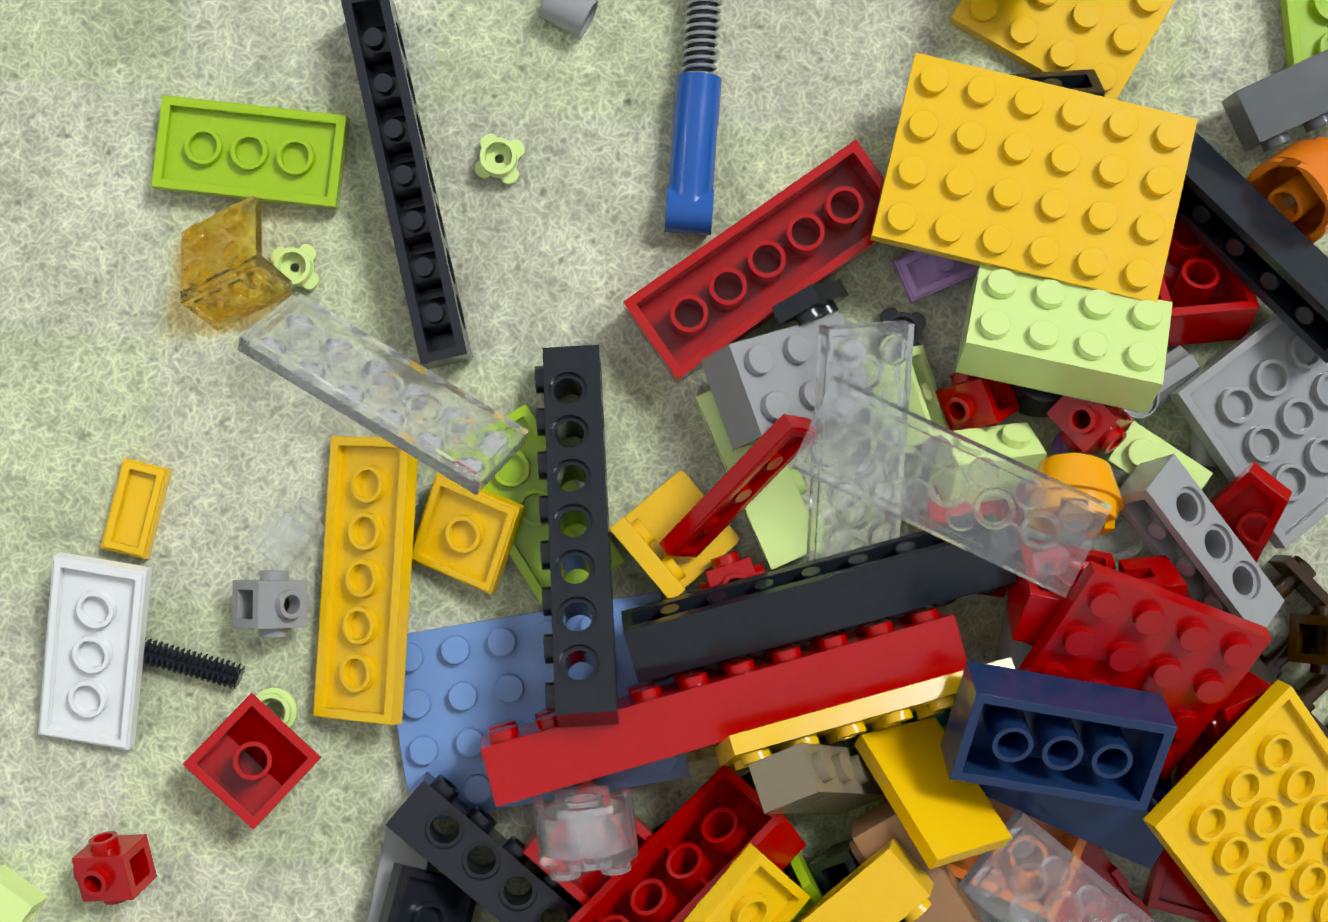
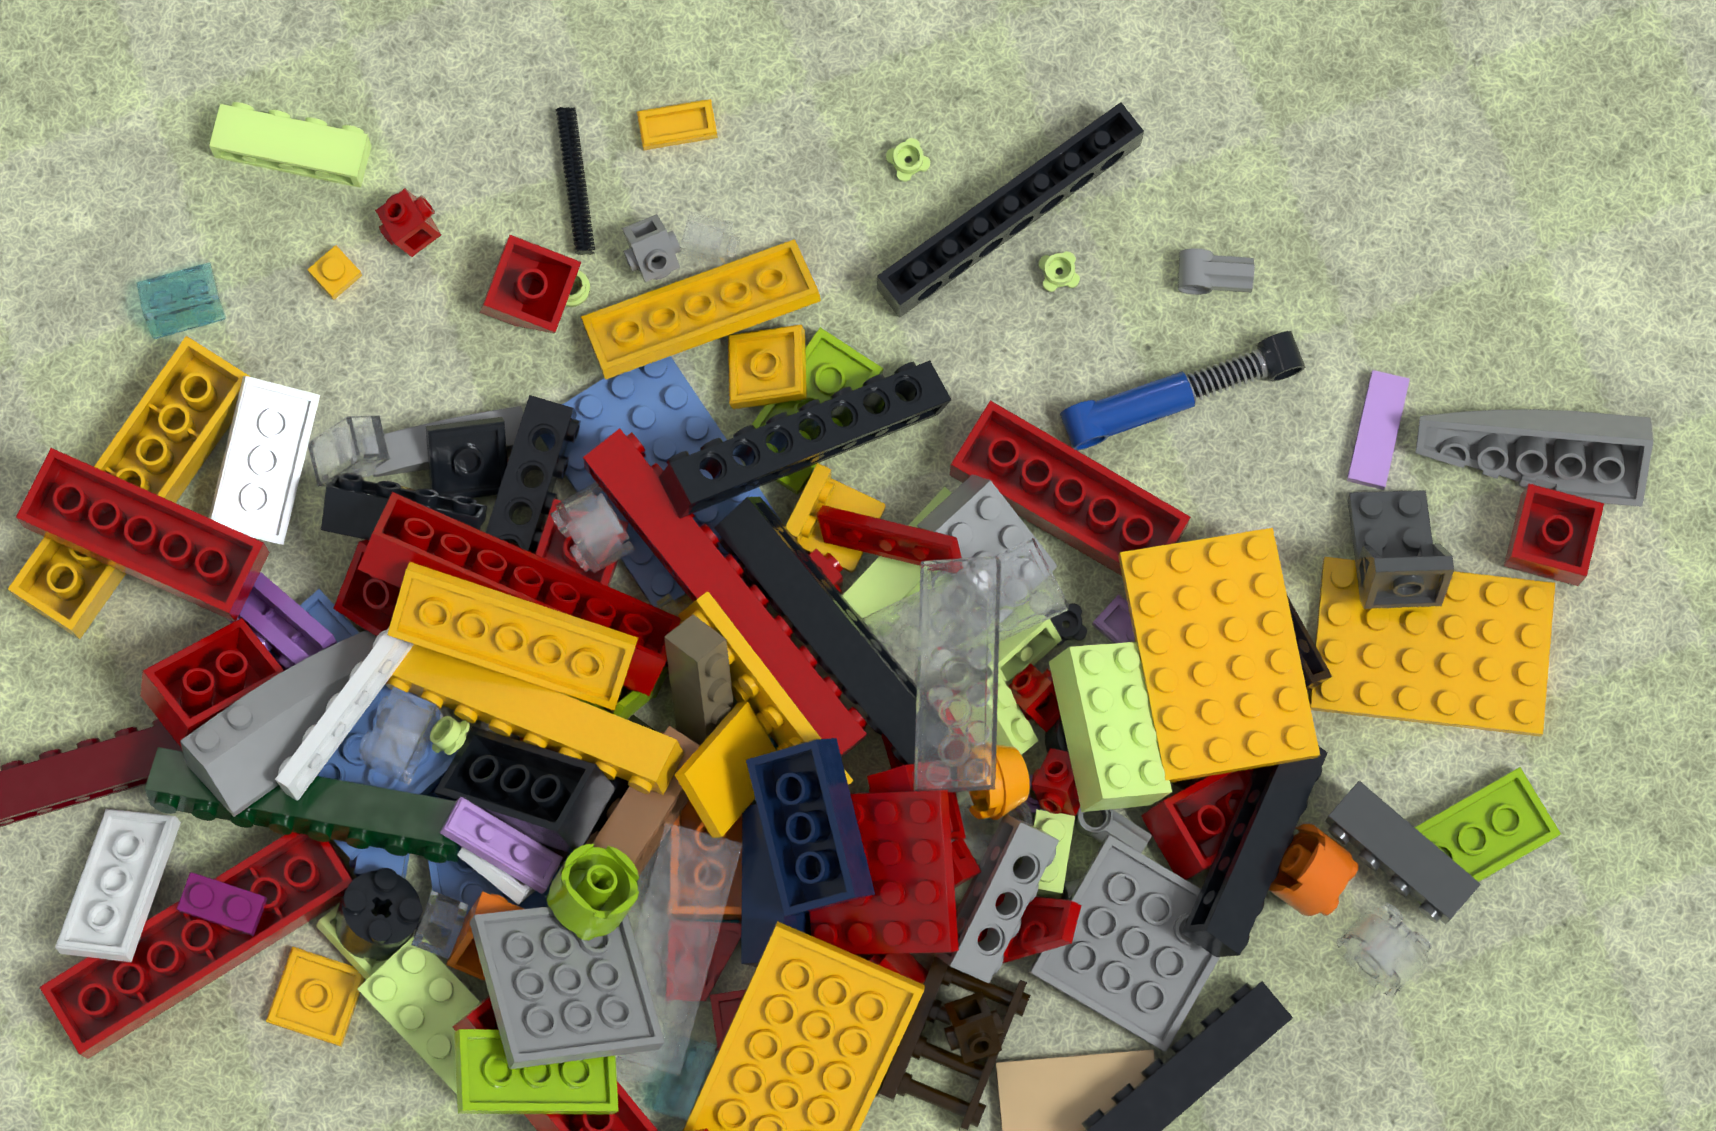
camera: 65 degrees right, 10 degrees down
(94, 650) = (560, 140): white tile -> none
(225, 268) = (882, 108): clear yellow bracket -> none
(250, 152) = (979, 90): lime plate -> none
(384, 391) = (845, 260): clear plate -> none
(811, 303) = (1054, 538): black plate -> none

